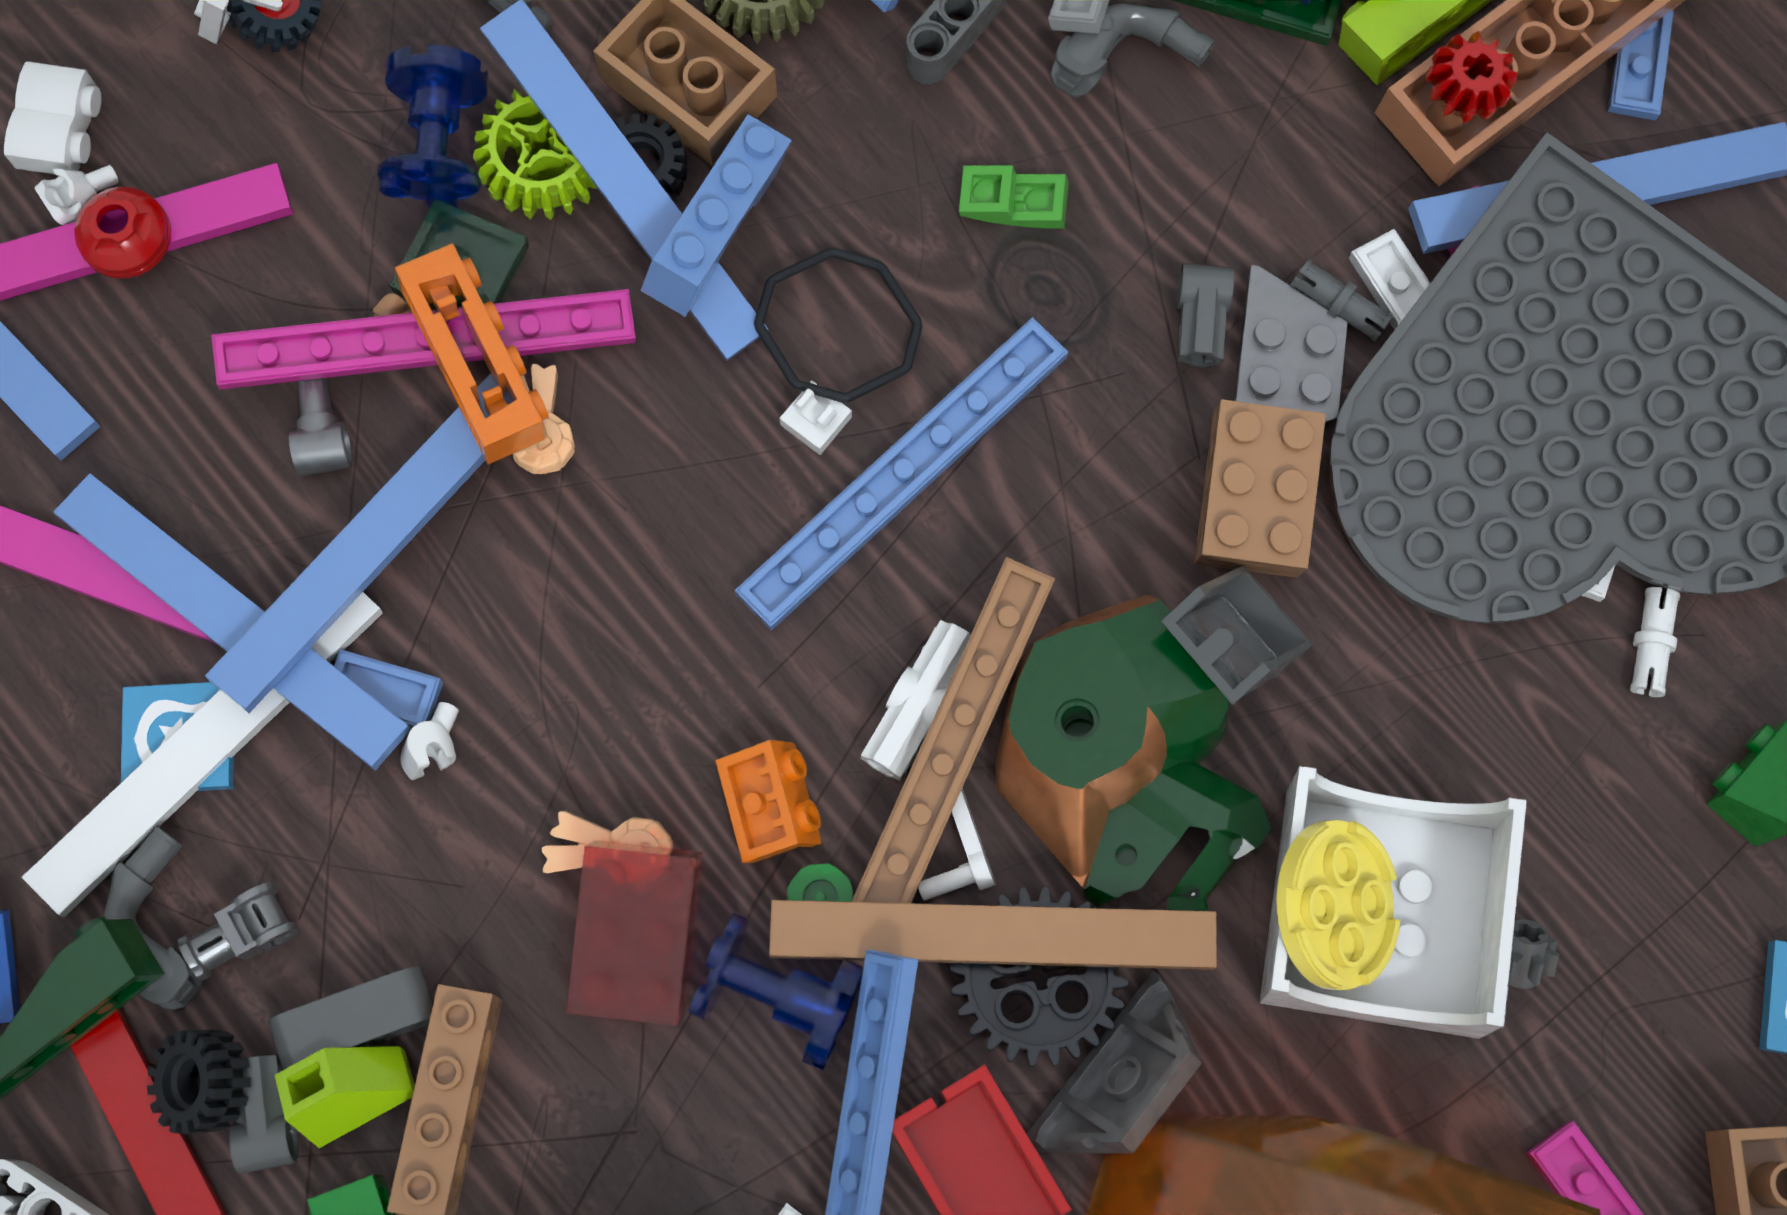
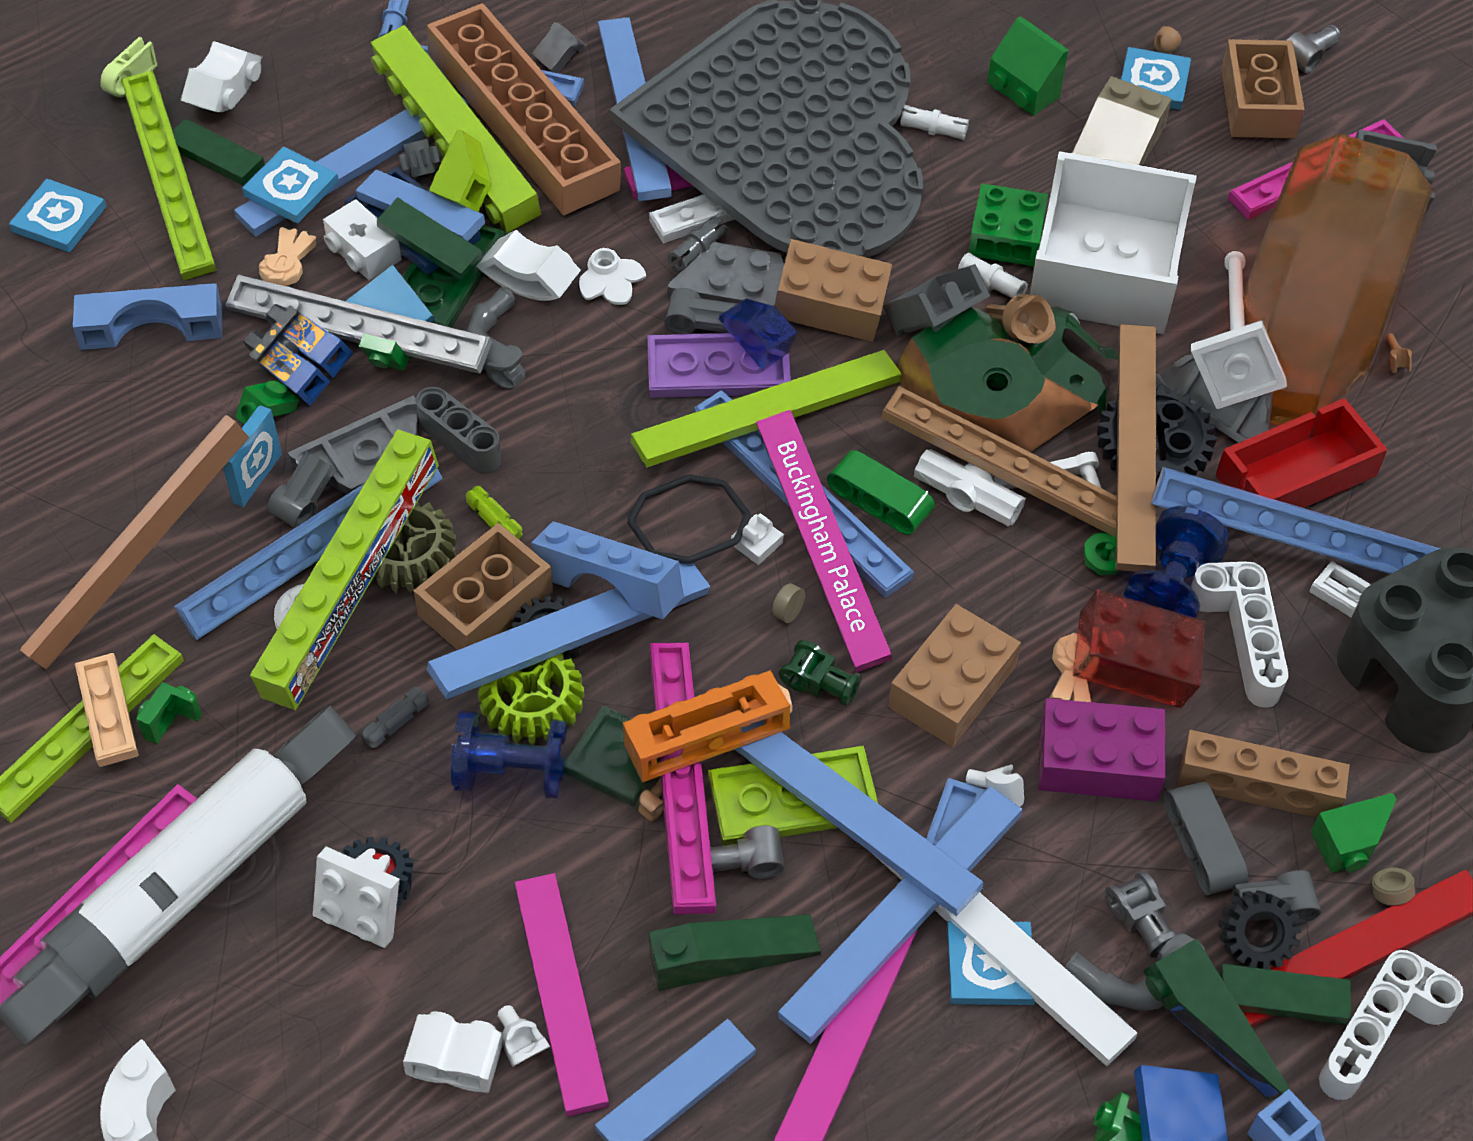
camera: 85 degrees left, 20 degrees down
(113, 1114) = (1289, 994): none -> dark green tile
(132, 249) = (571, 1010): red piece -> none
(188, 417) = (728, 947): none -> dark green slope
(343, 1089) = (1259, 835): lime slope -> none
(383, 436) = (751, 798): none -> lime tile
(479, 879) = (1102, 749): none -> magenta brick
(592, 680) = (954, 675): none -> medium nougat brick
(593, 501) = (816, 671): none -> dark green connector
(688, 1098) = (1229, 593): none -> white beam
(702, 460) = (788, 603): none -> dark tan tile
(769, 800) = (1041, 578): orange bracket -> none
(810, 498) = (824, 542): none -> dark pink tile
(828, 80) = (491, 511): none -> lime axle
(900, 576) = (880, 492): none -> green beam
(1013, 199) = (600, 412): bright green slope -> none
(1035, 415) = (741, 414): none -> lime tile
(1121, 349) = (705, 365): none -> medium lavender tile
(1126, 1093) = (1243, 359): none -> white tile
(1159, 382) = (759, 331): none -> clear blue slope
(1208, 761) = (1025, 318): none -> medium nougat piece
(1256, 73) = (529, 268): none -> white brick
(1256, 190) = (610, 277): none -> white plate
(1333, 729) = (995, 277): none -> white pin
(1337, 905) = (1118, 255): light yellow tile -> none
(1435, 747) = (1008, 224): none -> green brick
(1480, 61) = (568, 138): red gear -> none
(1671, 938) = (1124, 123): none -> slope
(1714, 70) = (557, 48): none -> flat silver tile

